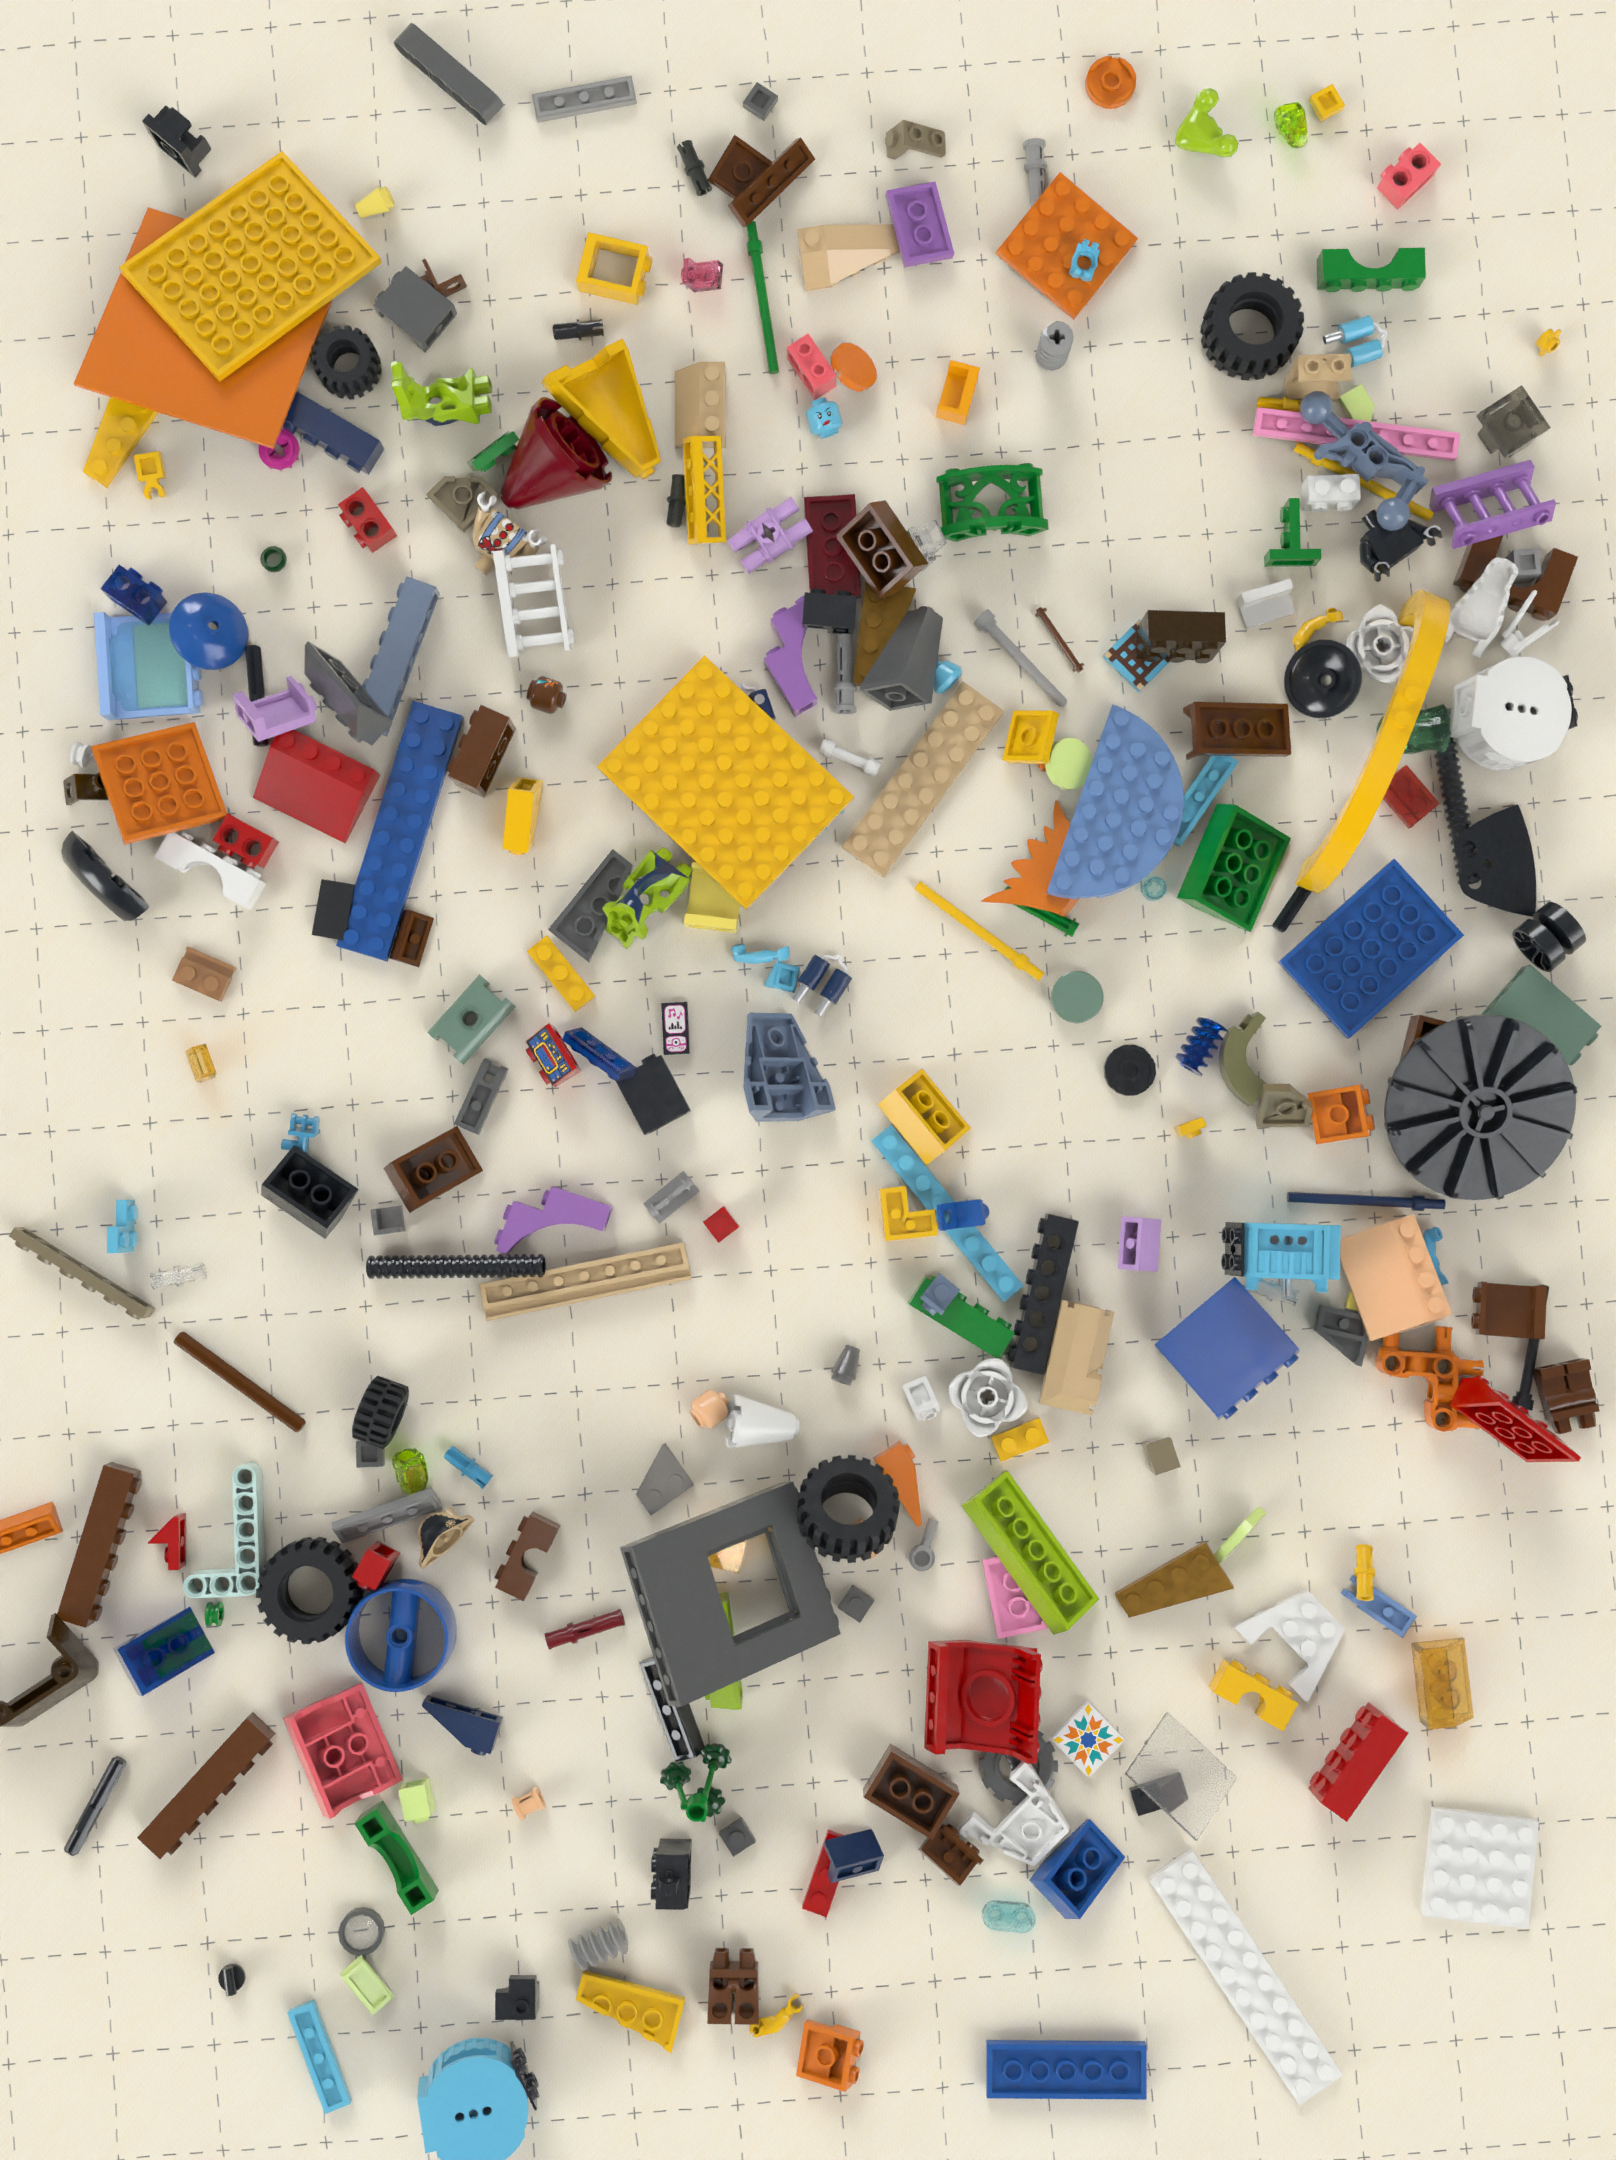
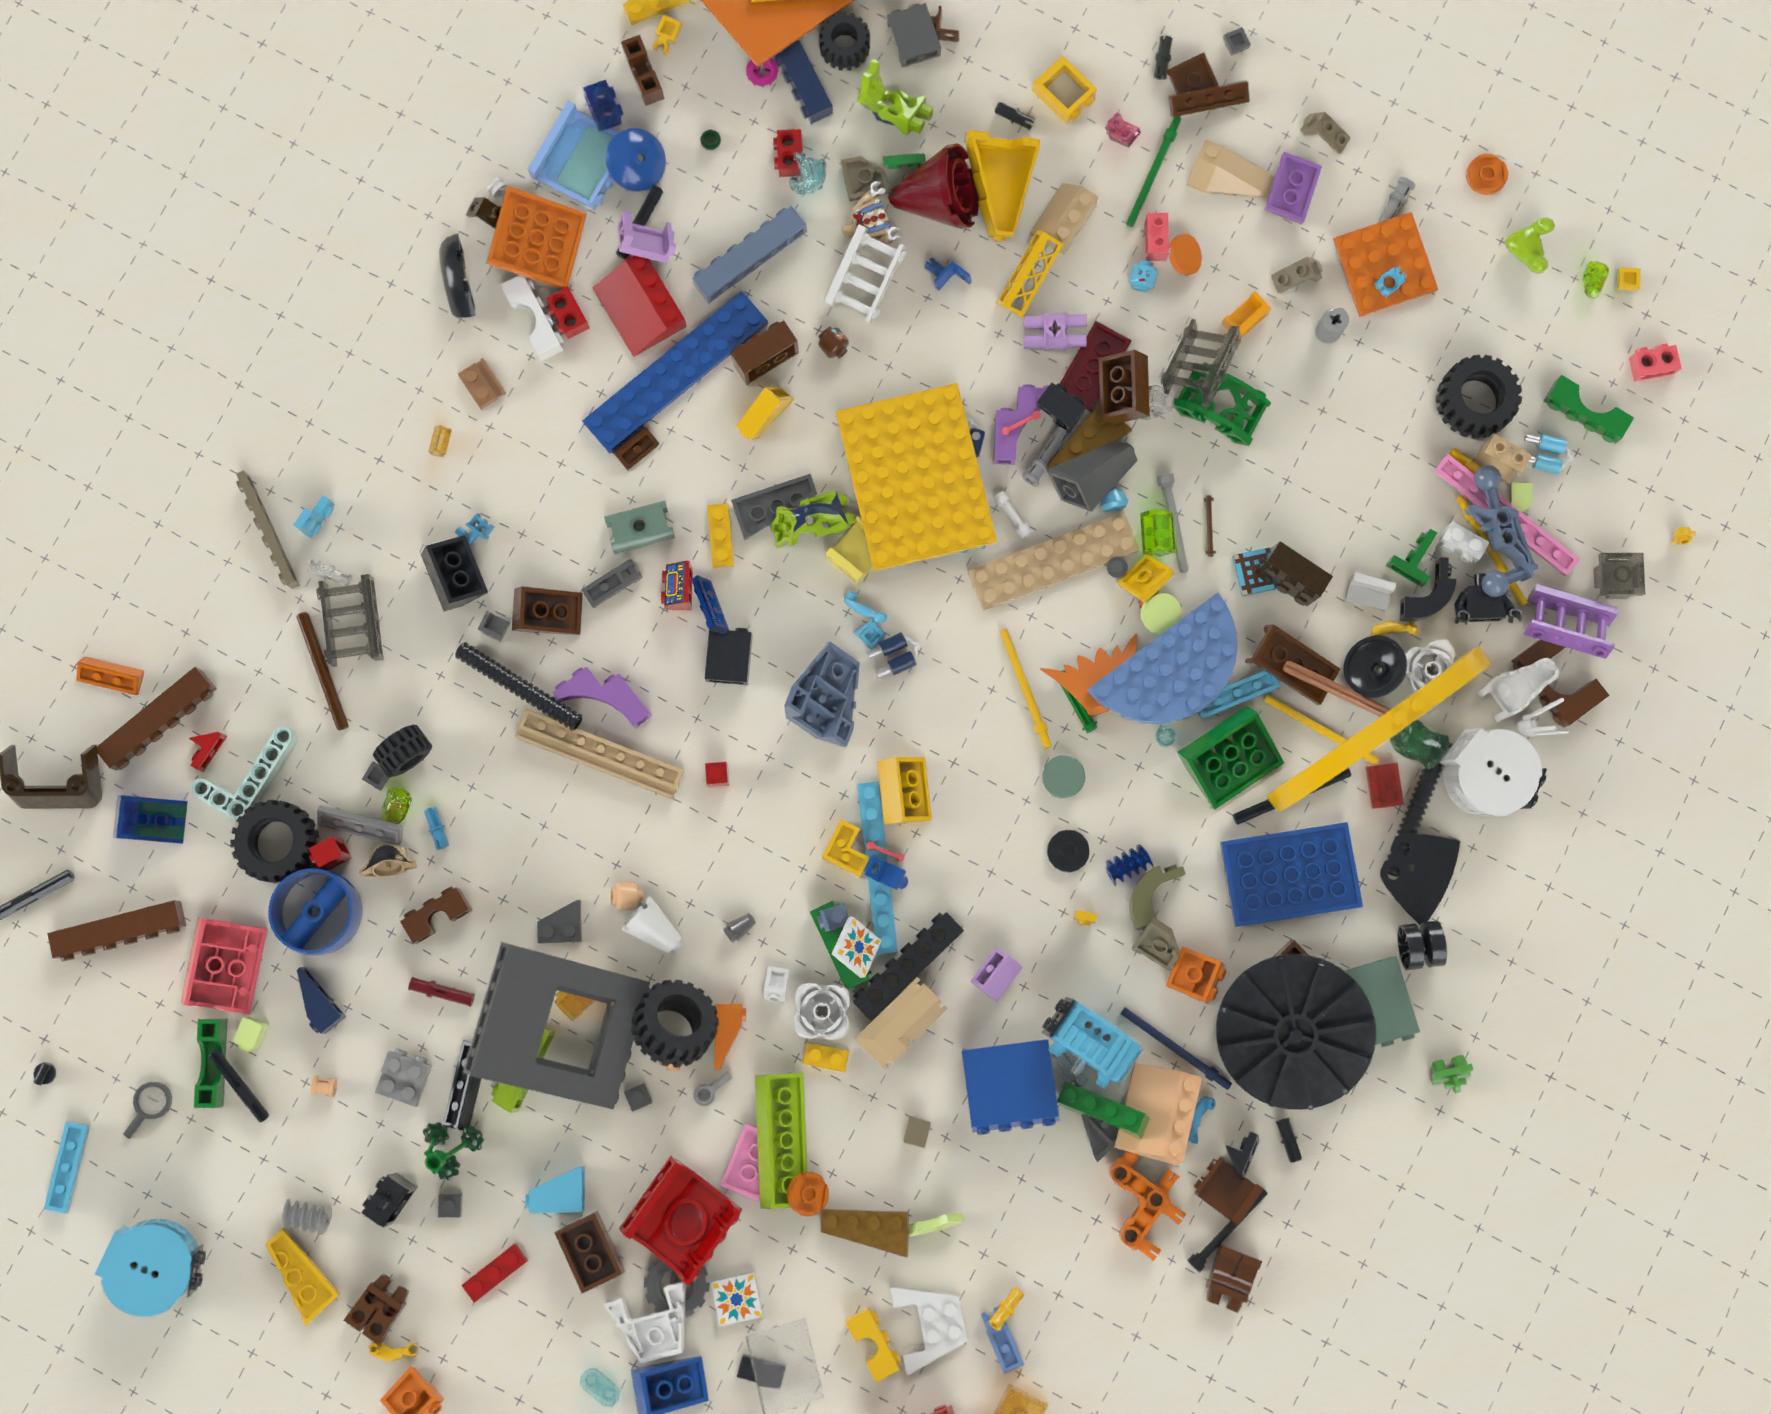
camera: 35 degrees right, 5 degrees down
(151, 530) = (642, 70): none -> reddish brown arch
(214, 1614) = (200, 816): green bush -> none
(260, 1305) = (370, 628): none -> clear smoke fence
(333, 909) = (595, 395): black piece -> none
(344, 695) = (697, 257): dark grey slope -> none
(367, 1985) = (131, 1139): yellowish green tile -> none
(406, 527) = (812, 174): none -> clear light blue helmet
(441, 1860) = (238, 1085): none -> black axle
(518, 2000) = (227, 1217): black brick -> none
(603, 1740) = (403, 1077): none -> light grey plate
(615, 546) = (945, 273): none -> blue bracket
(671, 1197) = (695, 734): light grey hinge -> none
(675, 1028) = (773, 622): tile -> none
(676, 501) = (1006, 269): pearl dark grey axle -> none
(808, 637) = (1035, 415): none -> coral hinge
(841, 1753) = (560, 1194): none -> medium azure slope
(853, 1855) = (520, 1271): dark blue panel -> none
(928, 1195) = (871, 846): none -> coral hinge
(951, 1853) = (589, 1314): reddish brown bracket -> none
(966, 472) = (1215, 371): none -> clear smoke fence
(982, 314) = (1297, 273): none -> dark tan bracket
(982, 1310) = (856, 947): none -> tile
(992, 743) = (1117, 567): none -> dark grey plate
(1012, 681) = (1157, 532): none -> clear neon green brick
(1091, 1589) = (807, 1193): none -> orange tile
(1302, 727) = (1335, 688): none -> nougat axle
(1304, 779) = (1313, 724): none -> yellow bar
(1336, 1312) = (1103, 1109): none -> green arch
(1340, 567) = (1420, 608): none -> black arch
(1503, 1271) = (1242, 1159): none -> black slope
(1509, 1423) = (1175, 1267): red slope -> none
(1527, 563) = (1568, 678): light grey panel -> none
(1536, 1219) = (1289, 1140): none -> black axle

